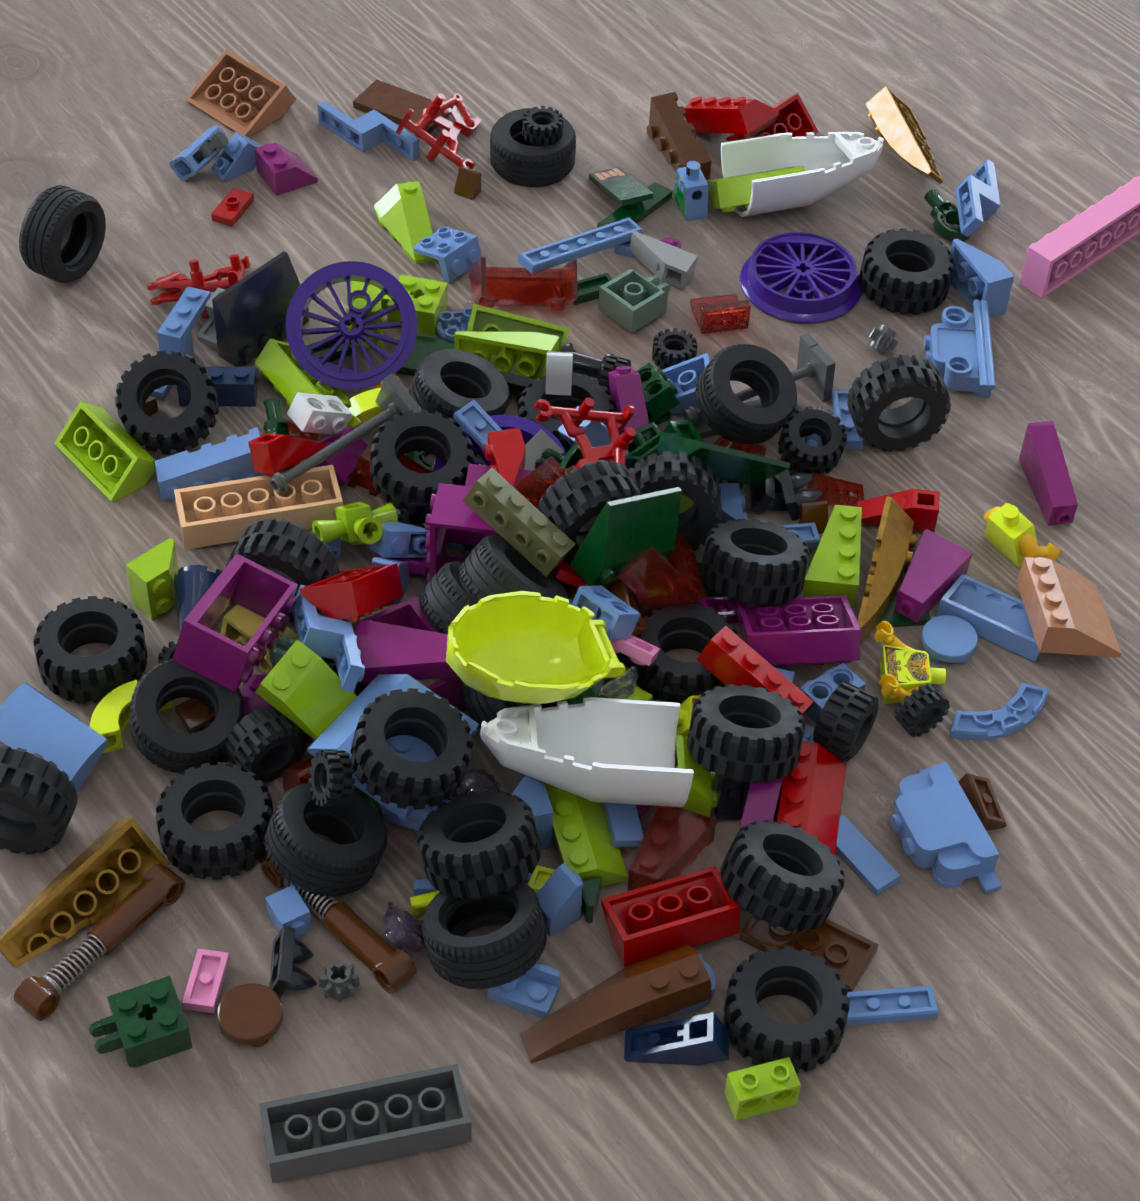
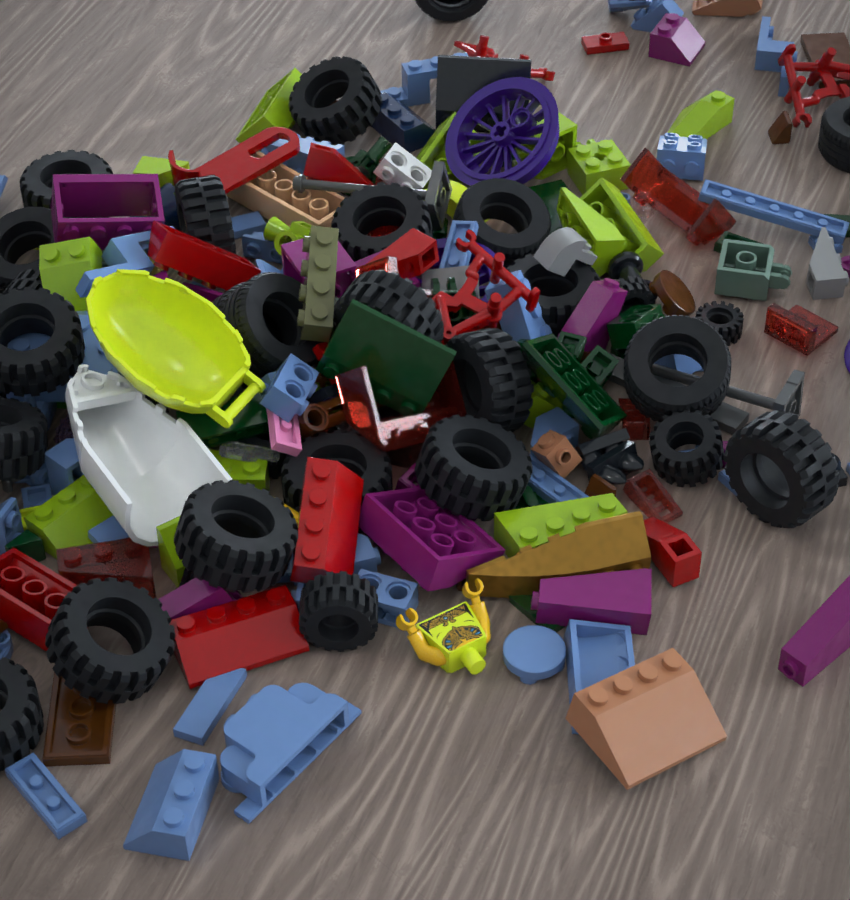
camera: 60 degrees right, 5 degrees down
(203, 519) = (237, 165): none -> red piece
(628, 351) = (673, 294): none -> reddish brown tile
(760, 508) = (556, 453): none -> nougat brick
(922, 710) = (409, 663): black tyre -> none
(961, 922) = (174, 805): none -> medium blue slope
(983, 801) = (344, 764): reddish brown slope -> none
(1013, 717) = (480, 745): medium blue tile -> none
(1015, 535) = (714, 636): neon yellow torso -> none

